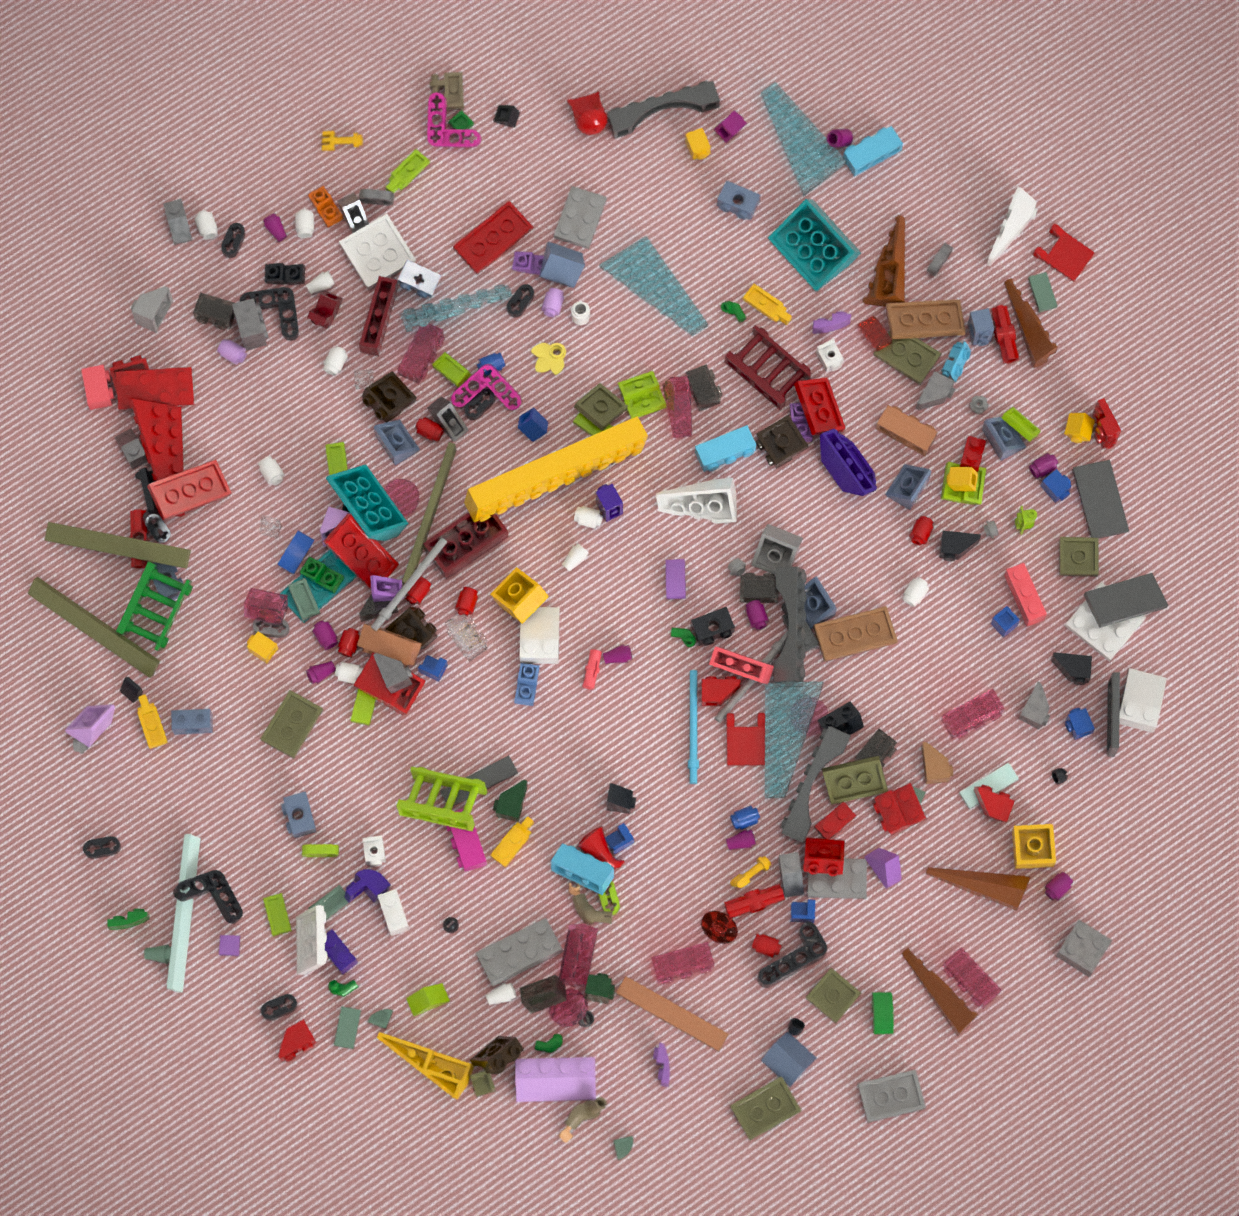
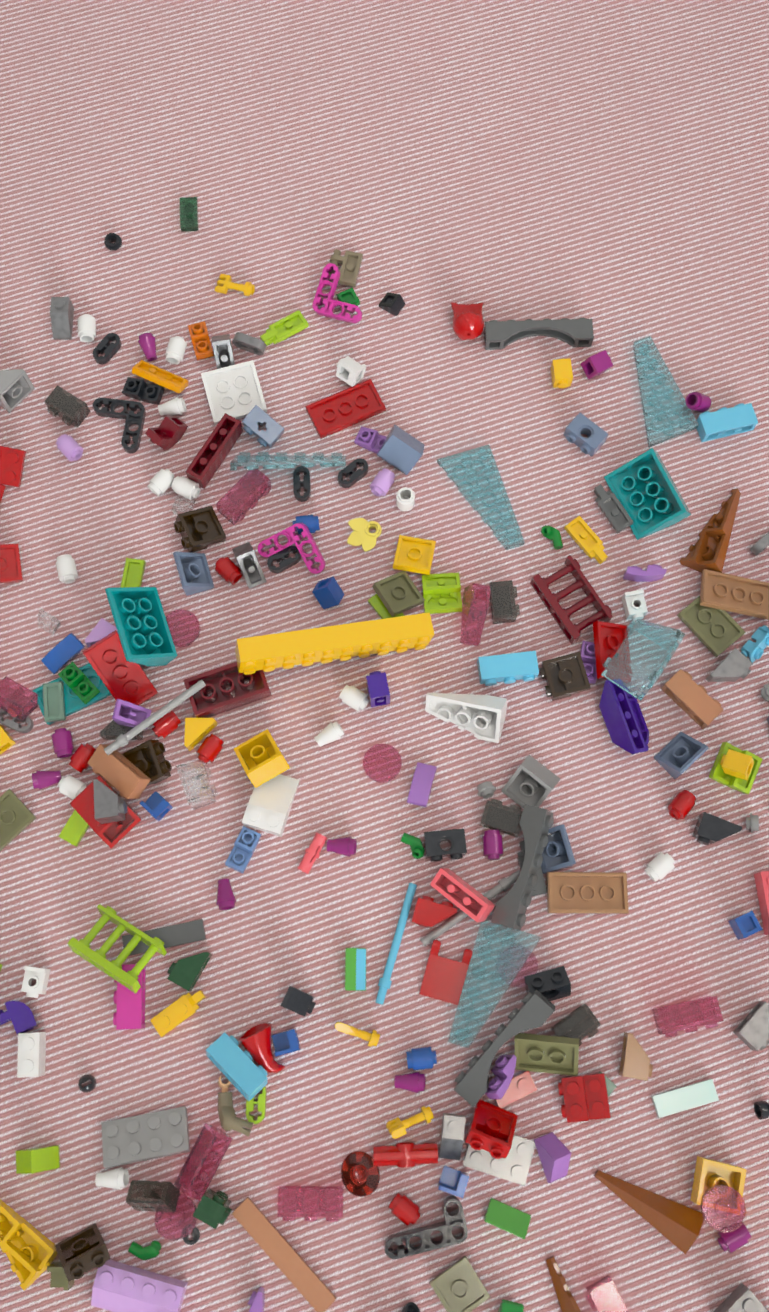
camera: 15 degrees right, 0 degrees up
(198, 122) = (112, 237): none -> black plate
(250, 324) = (92, 426): flat silver brick -> none
(269, 76) = (189, 214): none -> clear green plate
(297, 255) = (160, 376): none -> light orange tile
(361, 360) = (186, 487): none -> white brick
(430, 511) = (204, 648): olive tile -> none
(449, 586) = (196, 730): none -> yellow slope
(451, 369) = (267, 519): lime tile -> none
(477, 323) = (297, 483): none -> black beam
(487, 198) = (350, 371): none -> white brick
(523, 728) = (225, 895): none -> magenta cone
(580, 217) = (432, 411): light grey plate -> none
(605, 365) = (414, 554): none -> yellow tile
(632, 570) = (382, 763): none -> clear pink tile
(663, 760) = (355, 969): none -> slope
(669, 811) = (372, 1037): none -> yellow hinge
(784, 268) = (612, 509): none -> dark grey hinge
(821, 809) = (504, 1072): none -> medium lavender slope
(847, 403) = (642, 657): none -> clear light blue windscreen
(858, 928) = (507, 1218): none -> bright green slope
(875, 333) = (685, 595): clear red slope -> none
(973, 453) = (753, 740): red plate -> none
(993, 804) = (686, 1124): red slope -> none
(1040, 860) = (723, 1208): none -> clear pink tile

